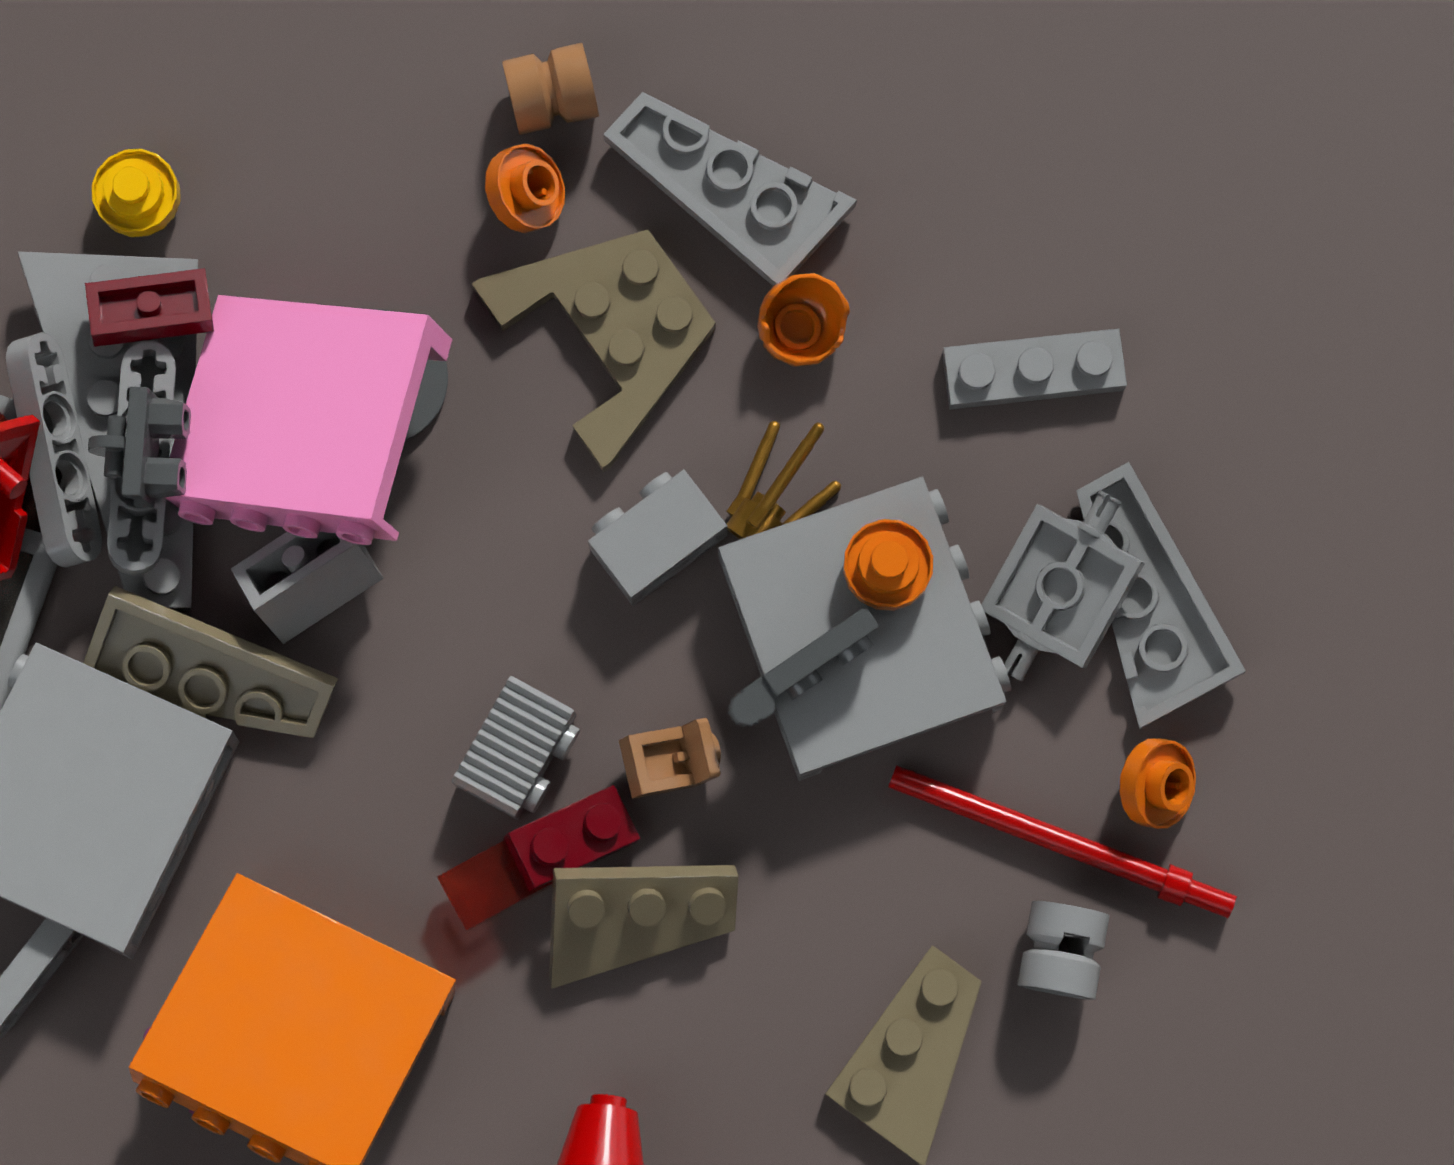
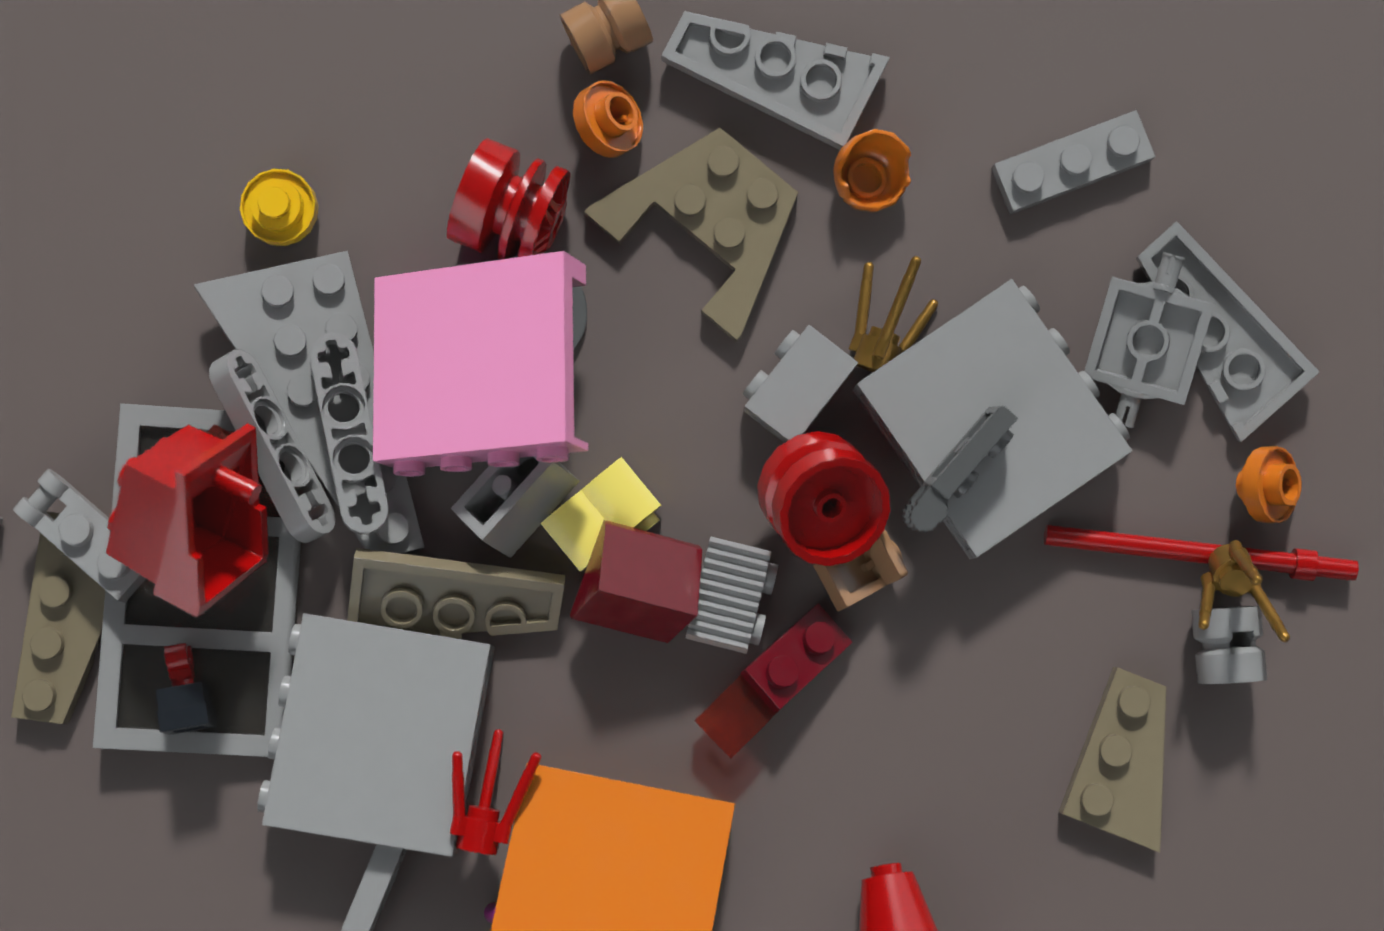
camera: 15 degrees left, 5 degrees up
(143, 472) = (357, 449): dark grey hips -> none
(149, 307) = (319, 303): dark red plate -> none
(165, 930) = (480, 828): none -> red plant
(380, 249) = (502, 203): none -> red wheel
(398, 623) = (611, 496): none -> light yellow brick
(417, 707) = (639, 583): none -> dark red slope
(634, 913) = (866, 706): dark tan wing -> none
(646, 665) = (823, 498): none -> red wheel
(888, 564) = (1006, 362): orange plate -> none
(1086, 873) = (1236, 575): none -> pearl gold plant

